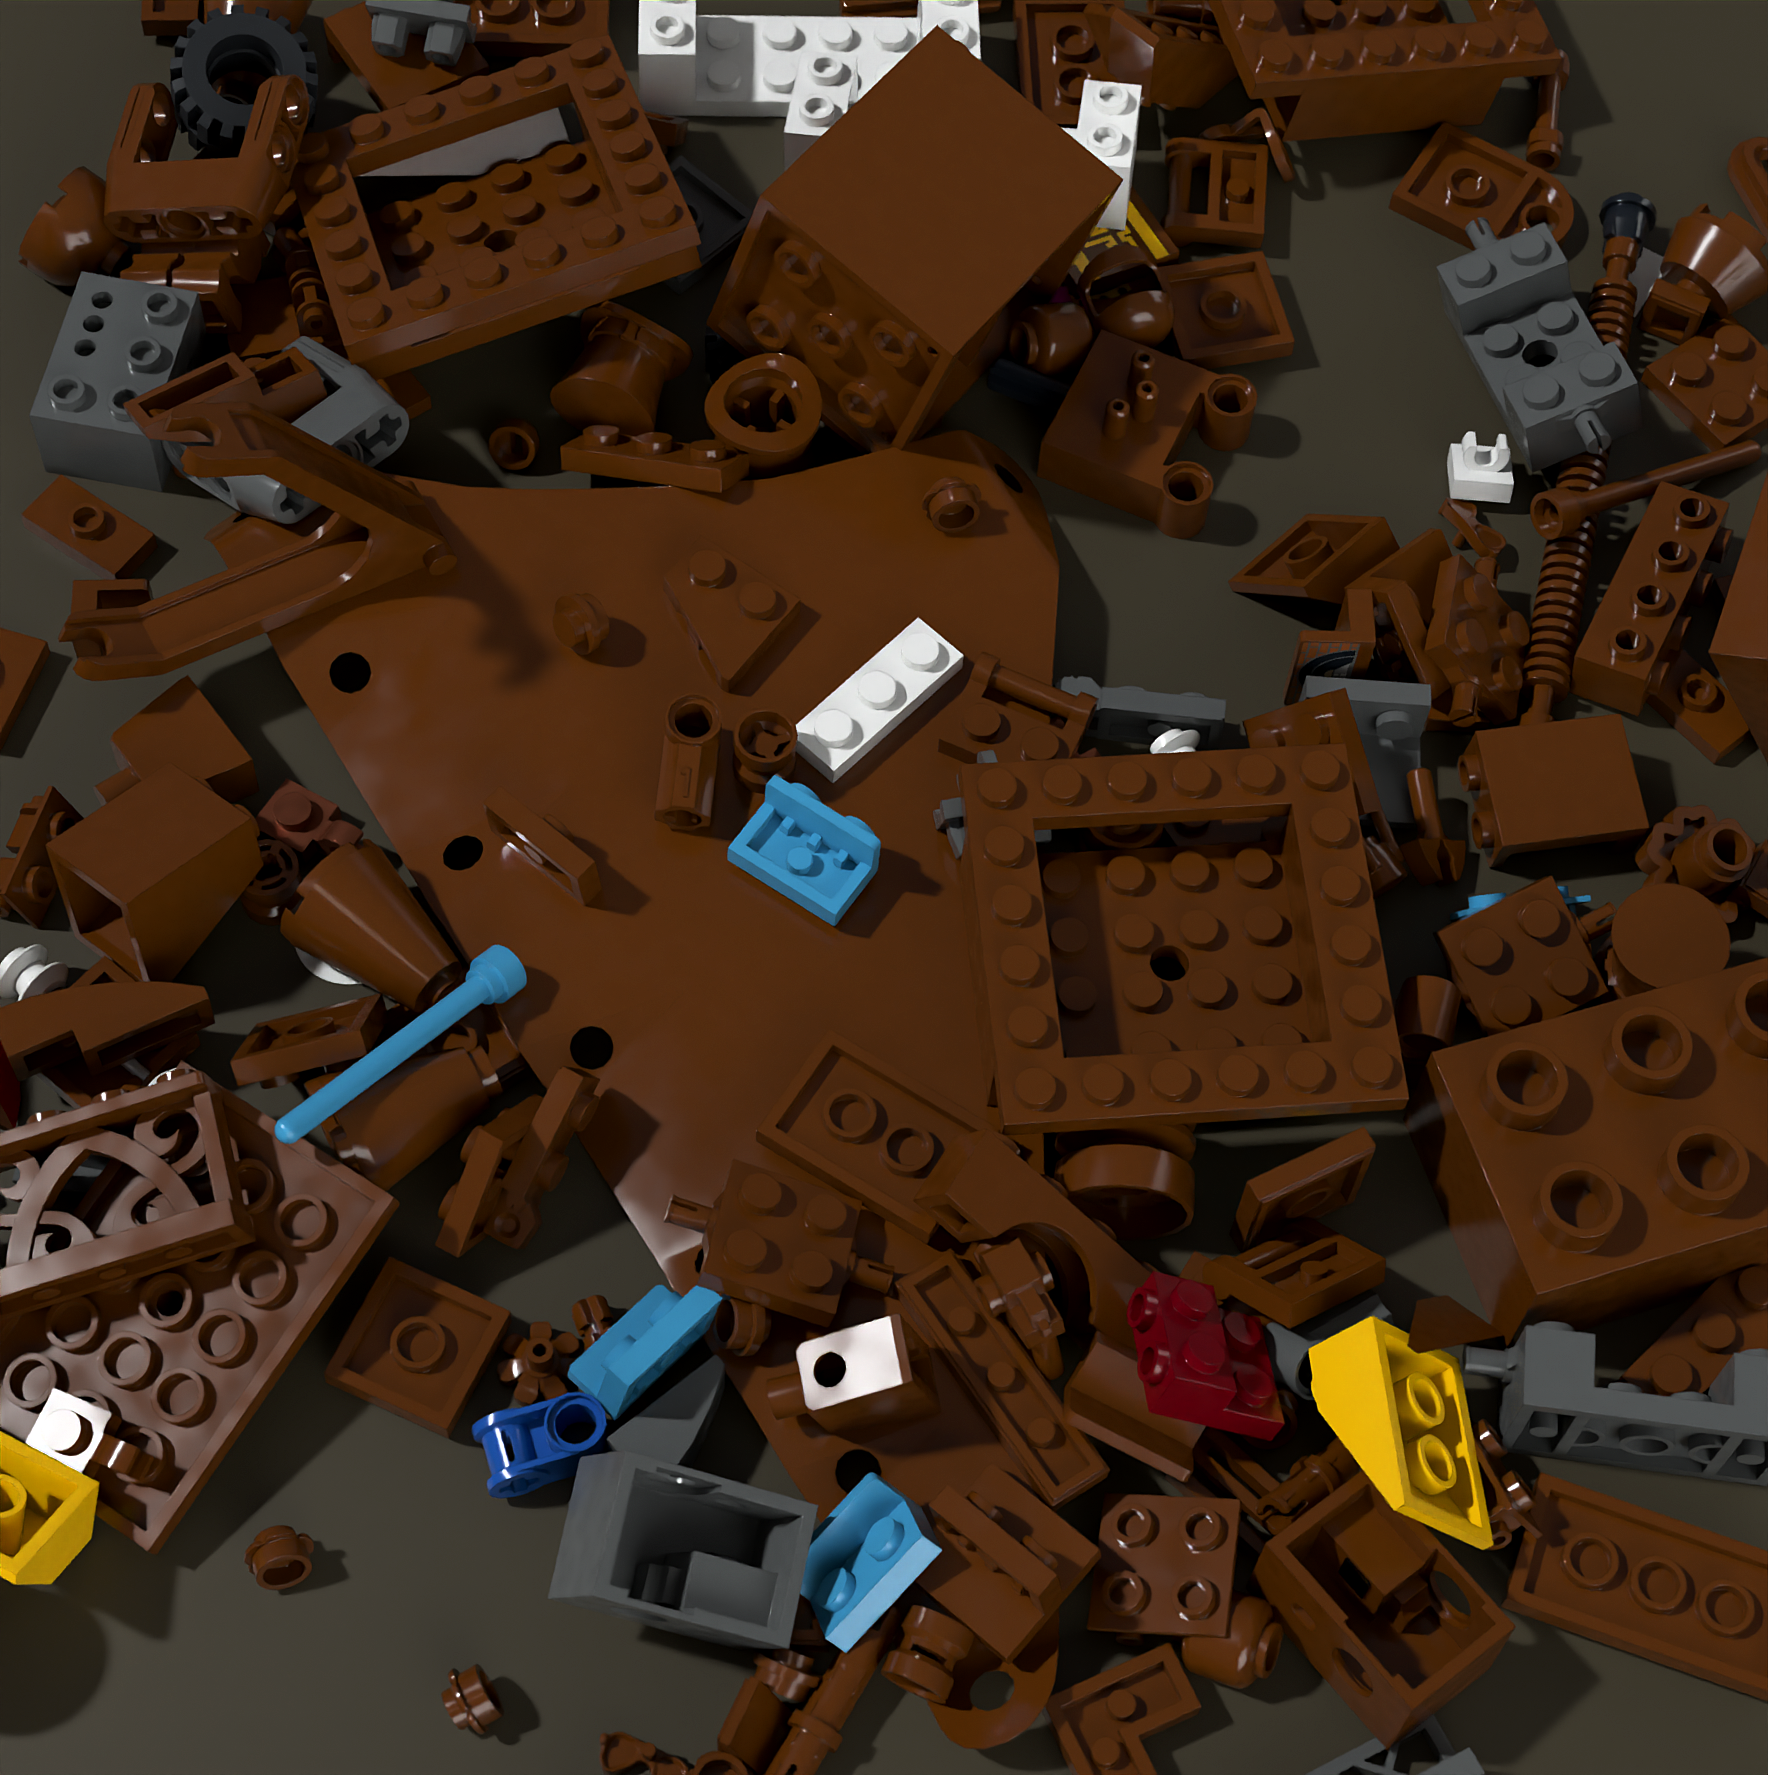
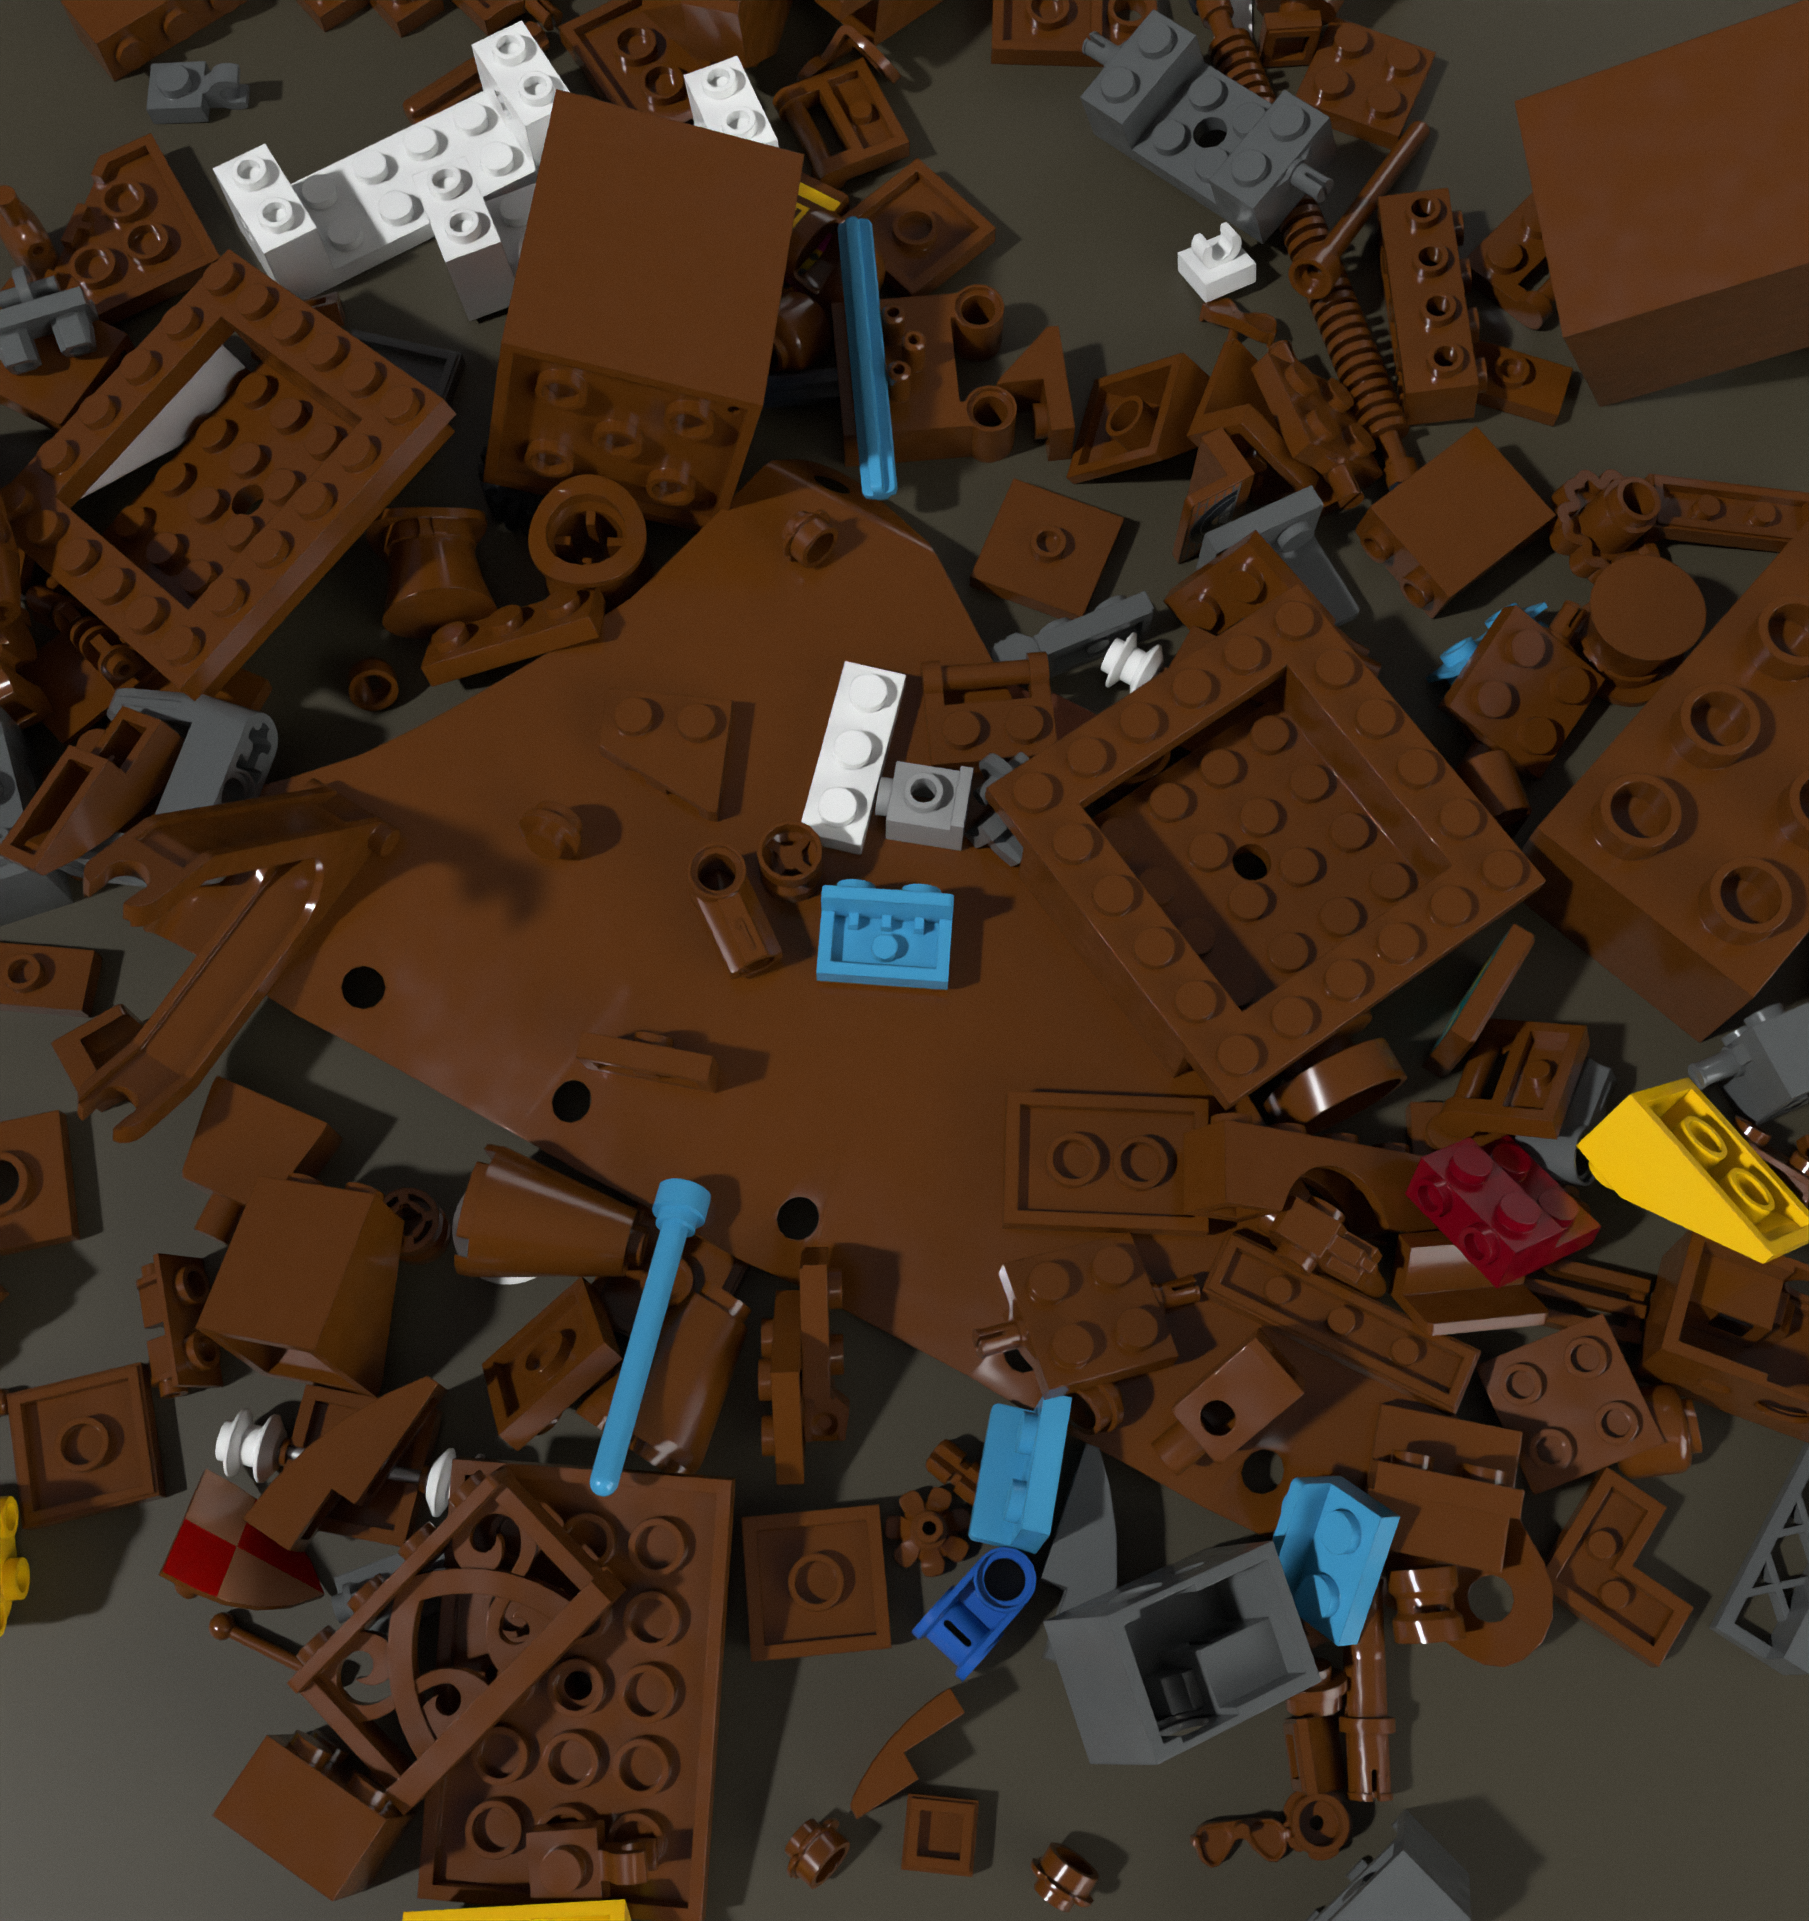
camera: 25 degrees left, 10 degrees up
(305, 822) = (406, 1150): copper plate -> none
(381, 1523) = (891, 1768): none -> reddish brown slope
(391, 1608) = (940, 1834): none -> reddish brown tile
(914, 781) = (929, 823): none -> light grey brick
(1098, 386) = (867, 359): none -> dark azure axle
(1168, 631) = (1046, 551): none -> reddish brown plate
(1247, 490) = (1041, 387): none -> reddish brown slope
(1308, 1484) = (1636, 1260): reddish brown pin -> none
(1431, 854) = (1390, 635): reddish brown bar -> none
(1444, 1324) = (1664, 1054): reddish brown sticker -> none

